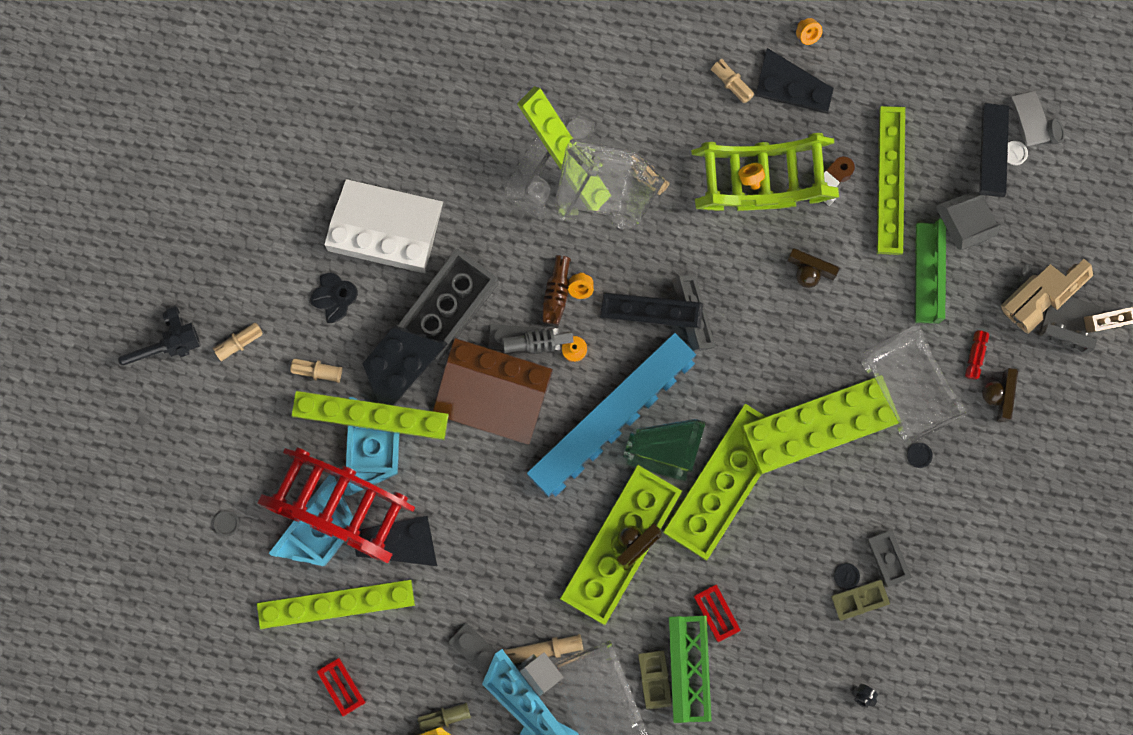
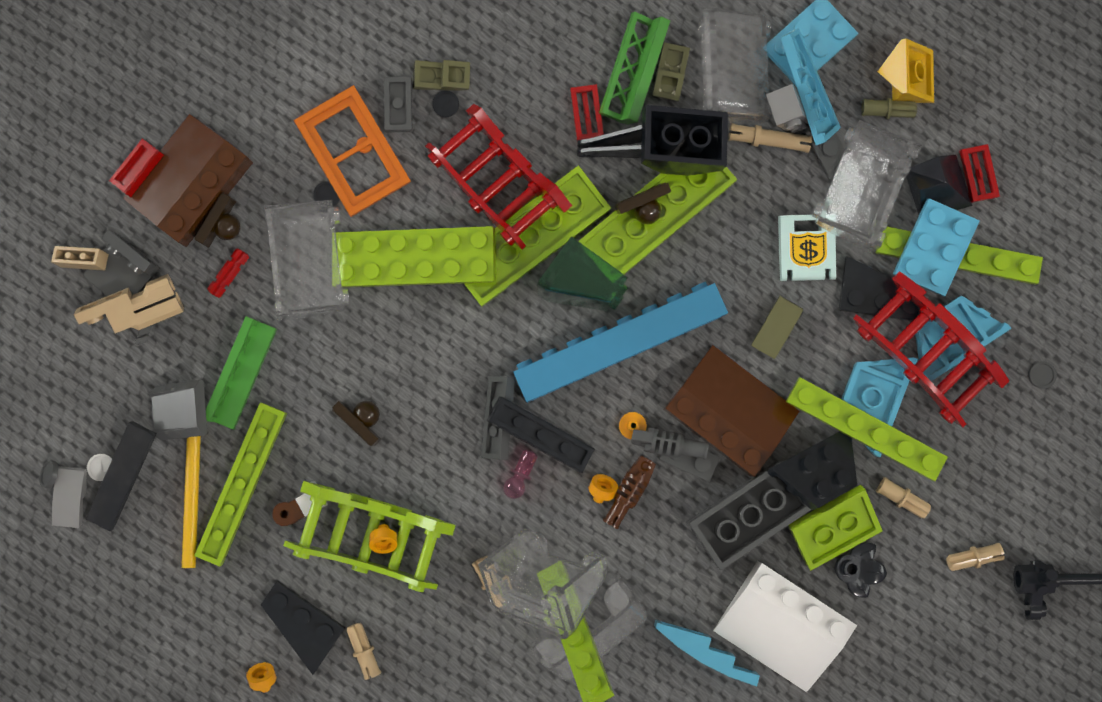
camera: 155 degrees left, 5 degrees up
(361, 599) = (936, 246): none -> medium azure plate
(368, 321) = (835, 527): none -> lime plate
(374, 661) = (940, 181): none -> black slope
(444, 629) = (865, 185): none -> clear windscreen
(454, 183) = (697, 646): none -> medium azure slope
(474, 556) = (805, 251): none -> light aqua container
(477, 480) = (777, 327): none -> olive slope
(630, 606) = (672, 141): none -> black slope
(656, 260) = (514, 486): none -> clear pink axle
(759, 538) = (519, 167): none -> red fence
(898, 520) = (351, 98): none -> orange door
(926, 149) = (191, 502): none -> yellow piece
(1047, 422) = (189, 180): none -> reddish brown slope
(1096, 417) = (136, 167): none -> red tile

